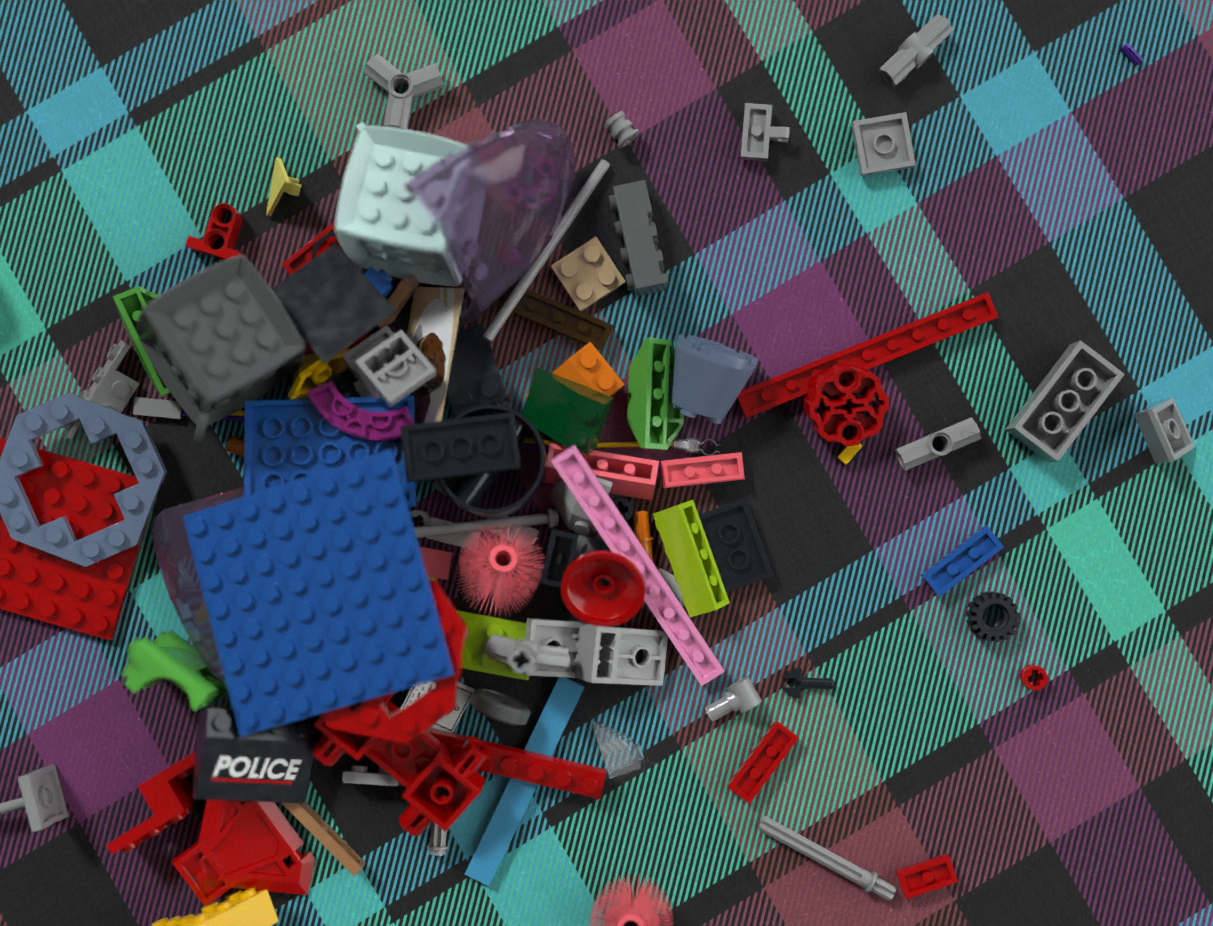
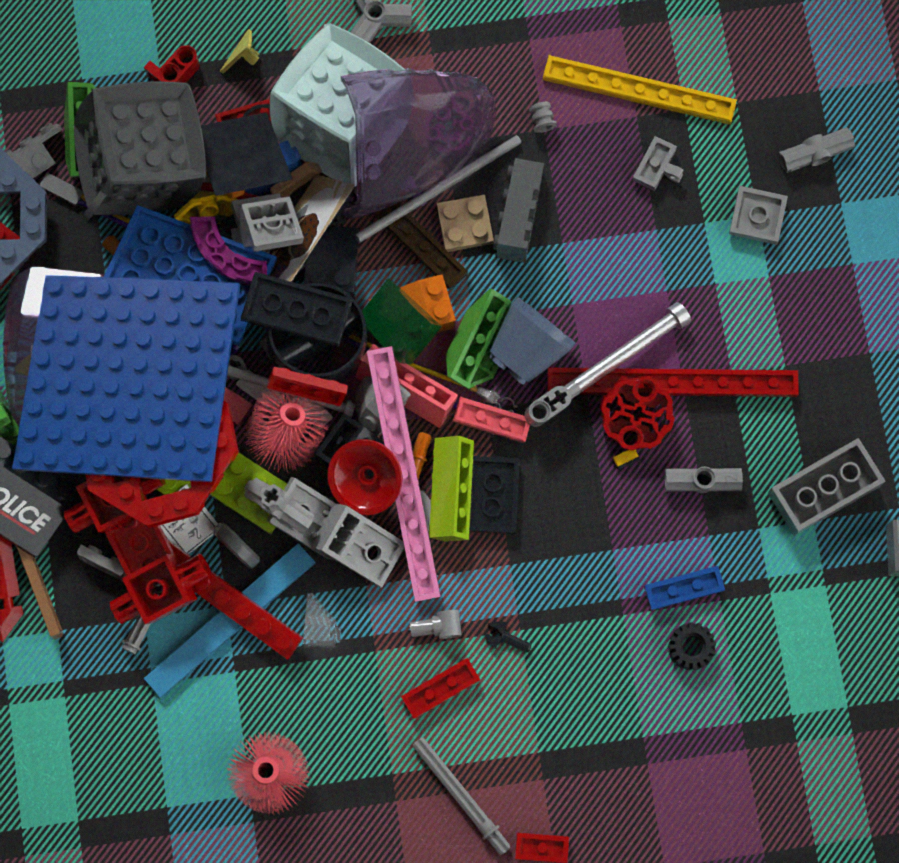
camera: 25 degrees right, 10 degrees down
(505, 522) = (307, 386): none -> red plate
(625, 503) = (414, 431): black bush -> none
(708, 58) = (639, 89): none -> yellow tile
(843, 286) = (676, 317): none -> flat silver piece
(1040, 682) = (702, 708): red bush -> none

